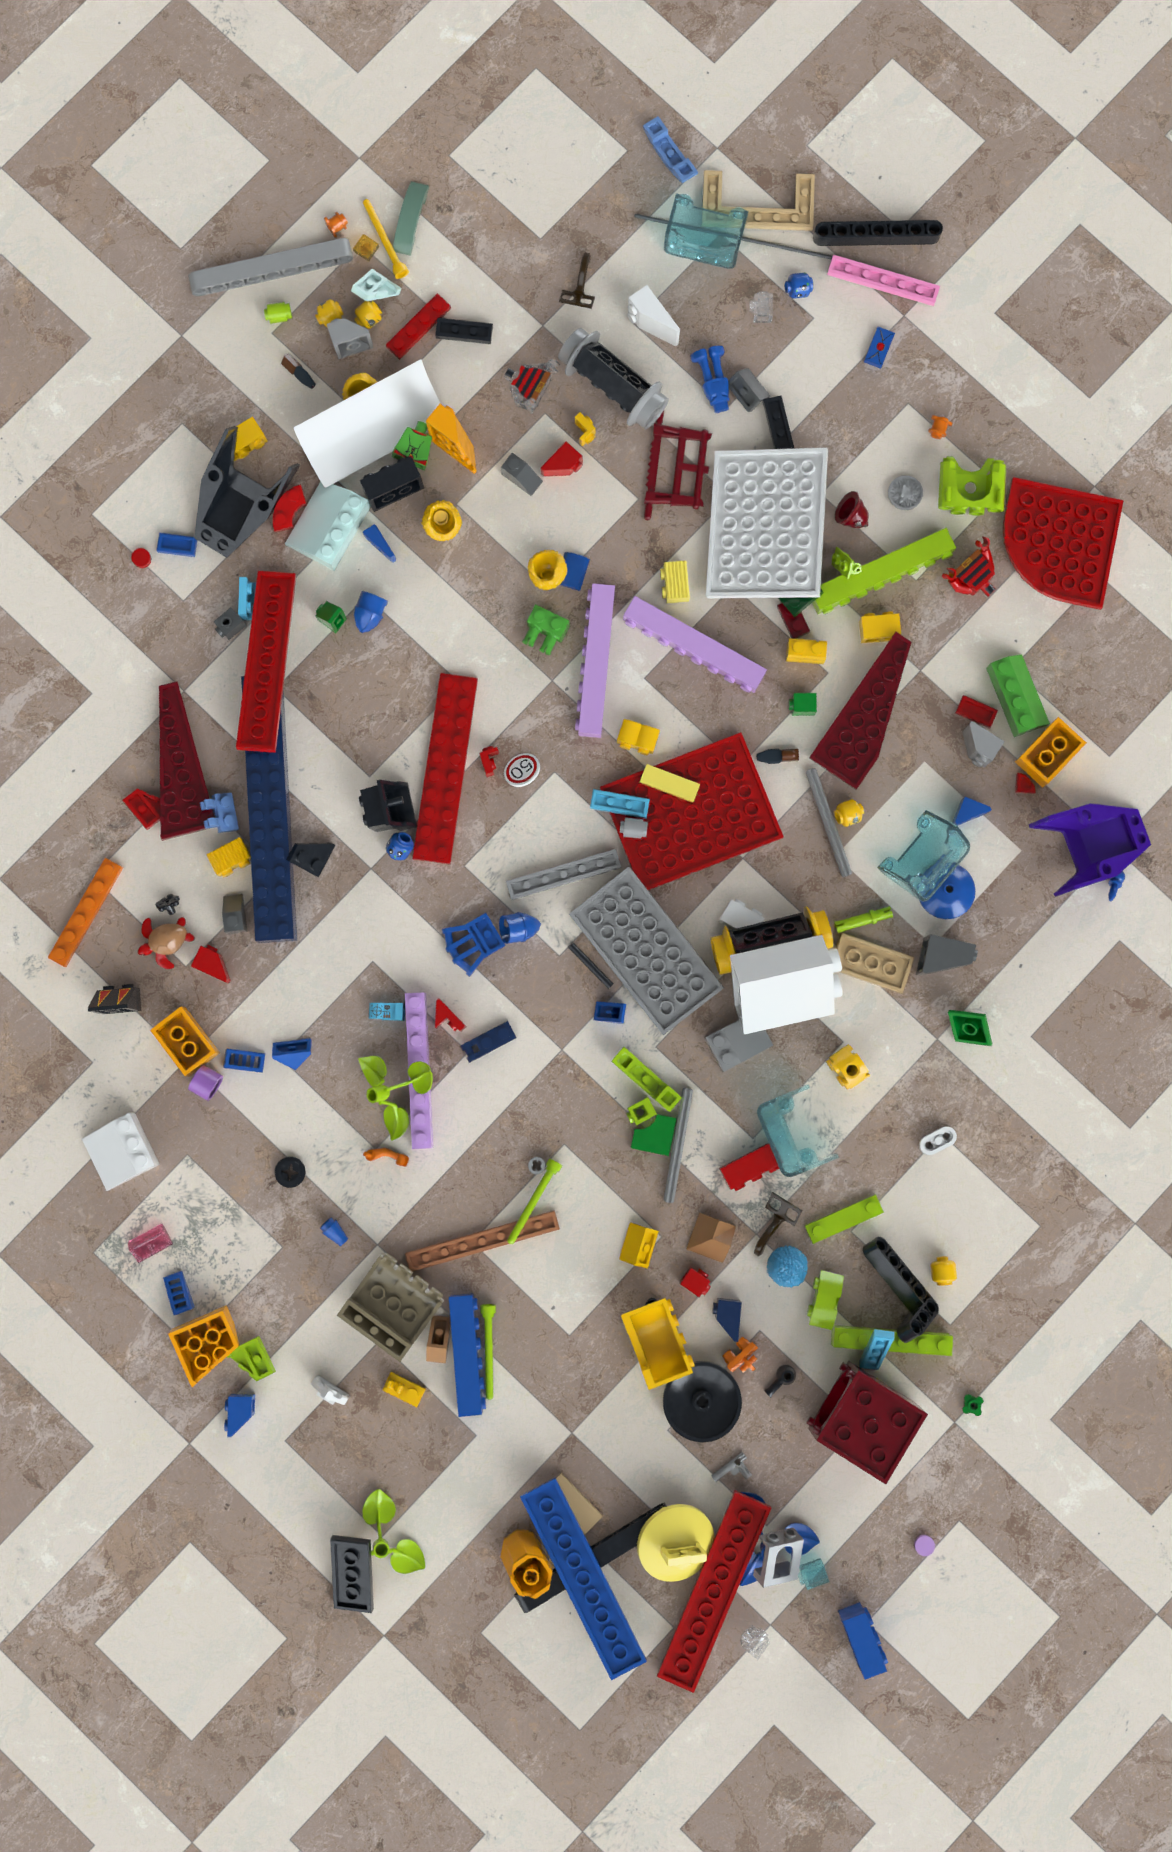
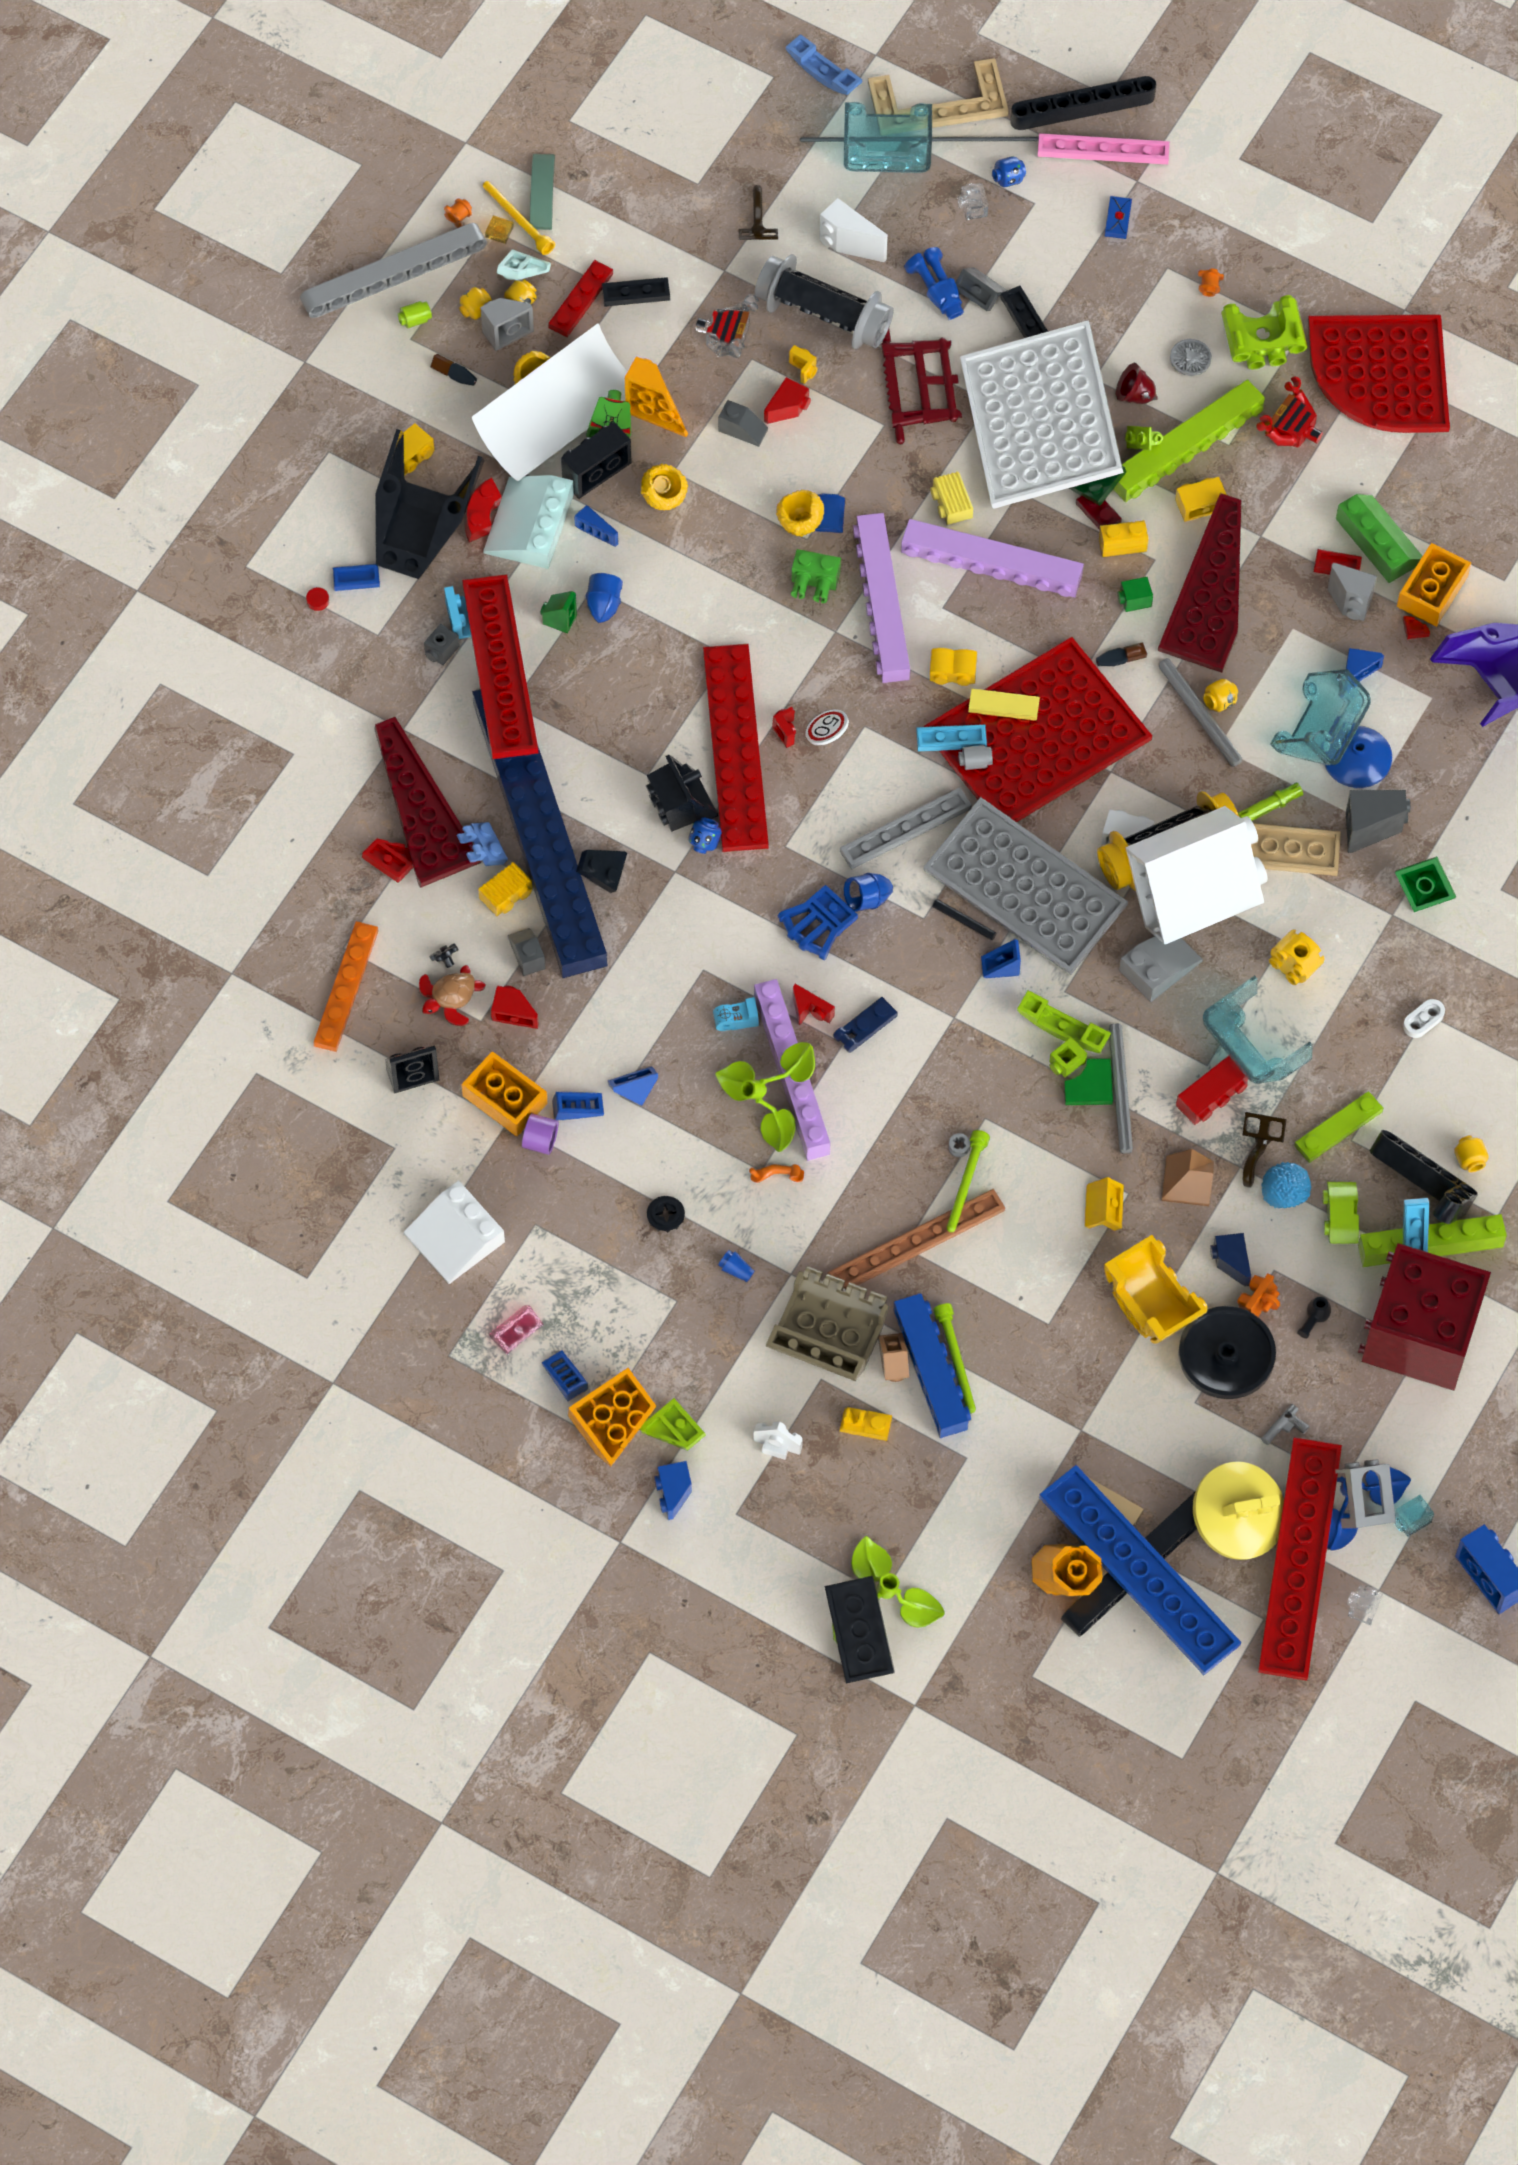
camera: 15 degrees left, 20 degrees down
(696, 1281) = (1183, 1228): red brick -> none

